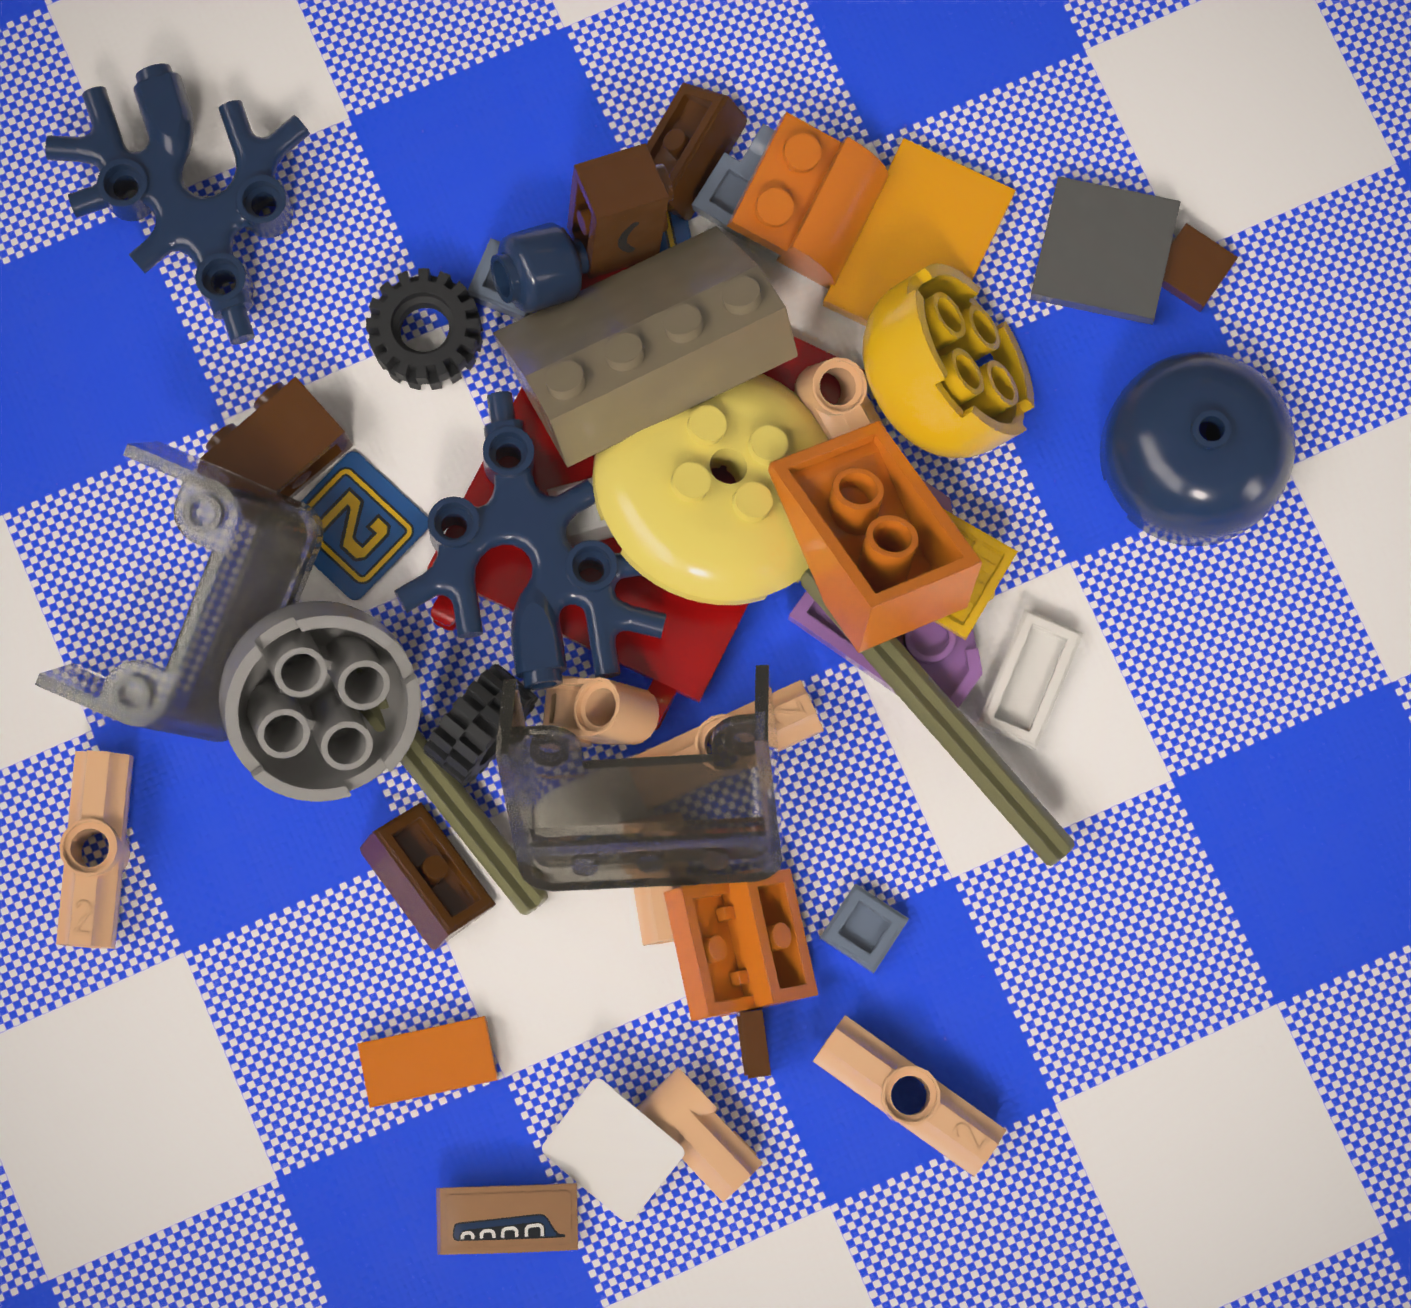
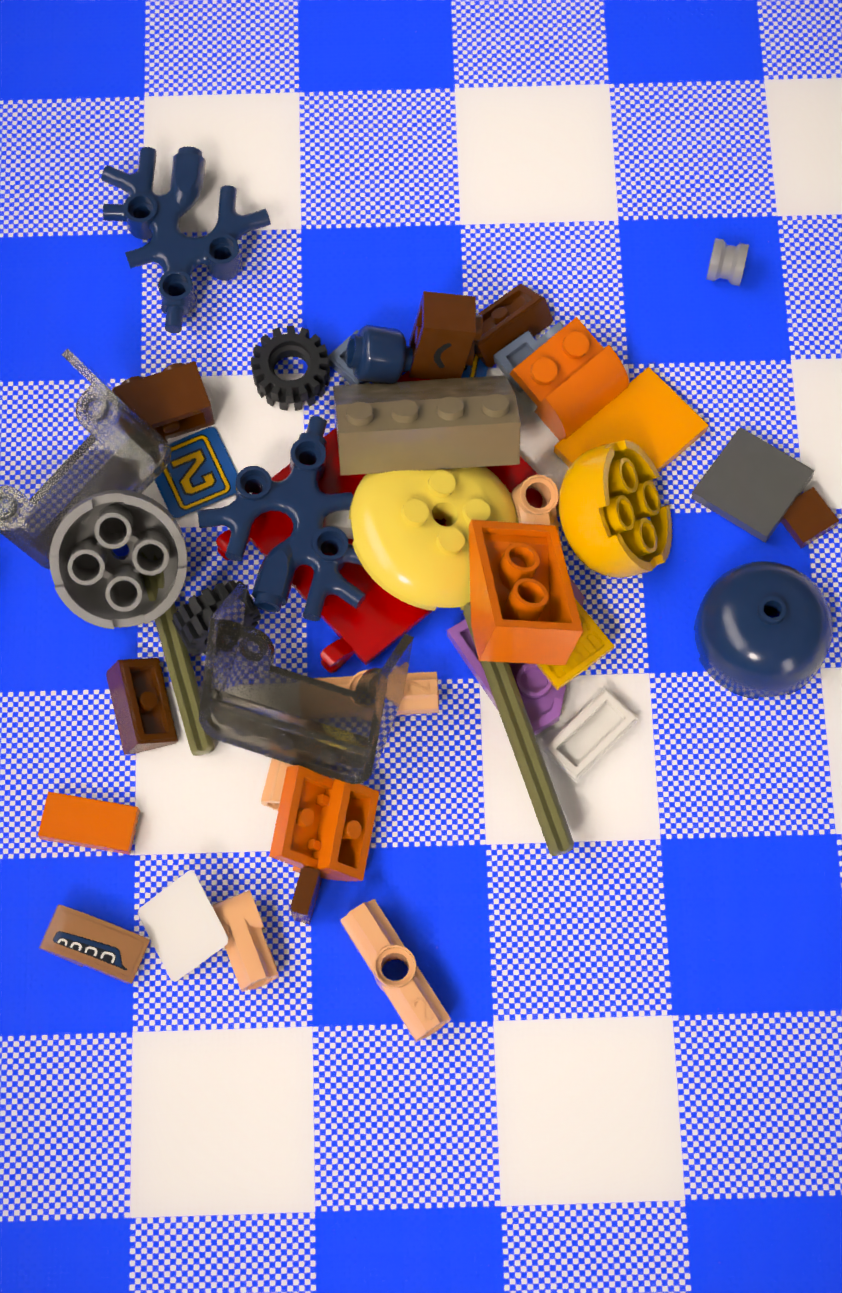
camera: 20 degrees right, 10 degrees down
(601, 711) = (299, 641): light nougat piece -> none
(864, 928) = (412, 852): sand blue tile -> none

